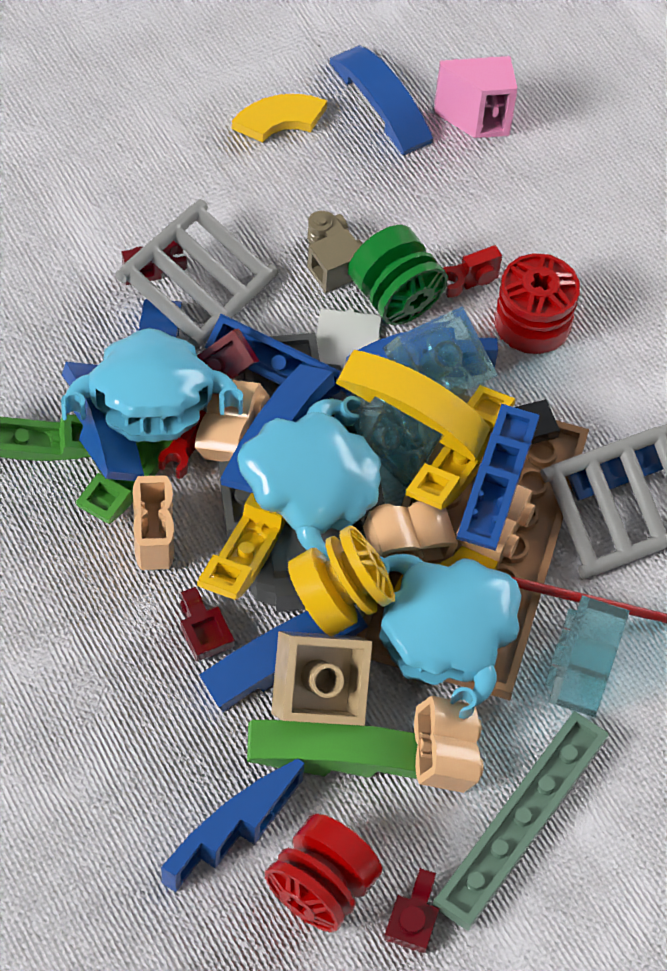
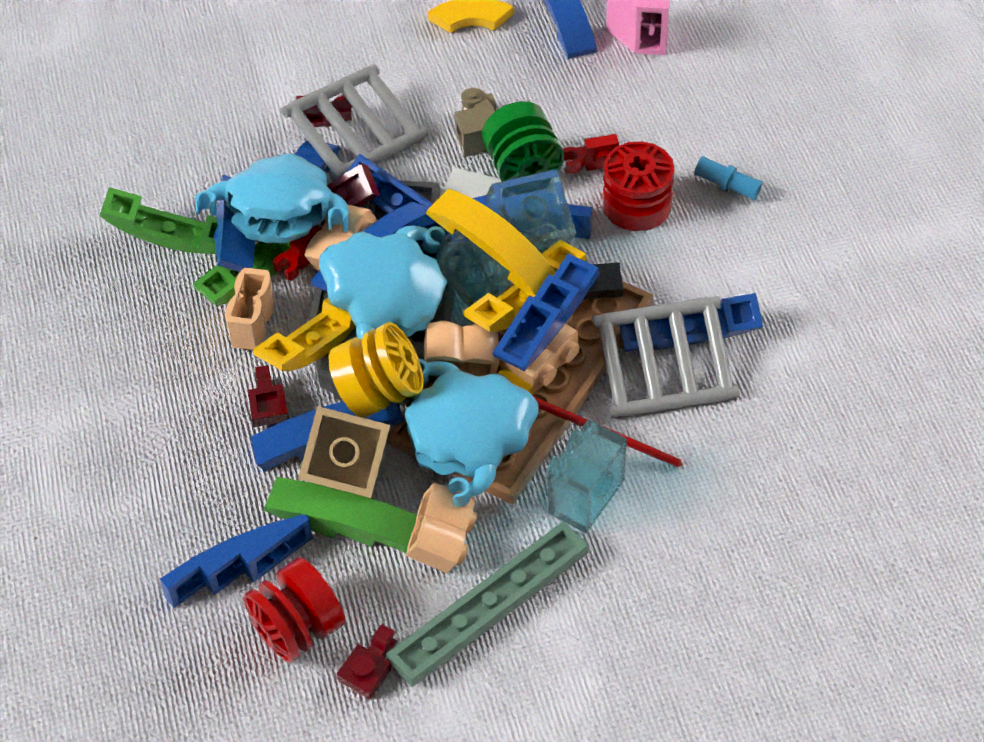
camera: 20 degrees right, 5 degrees down
(625, 276) = (728, 178): none -> dark azure pin

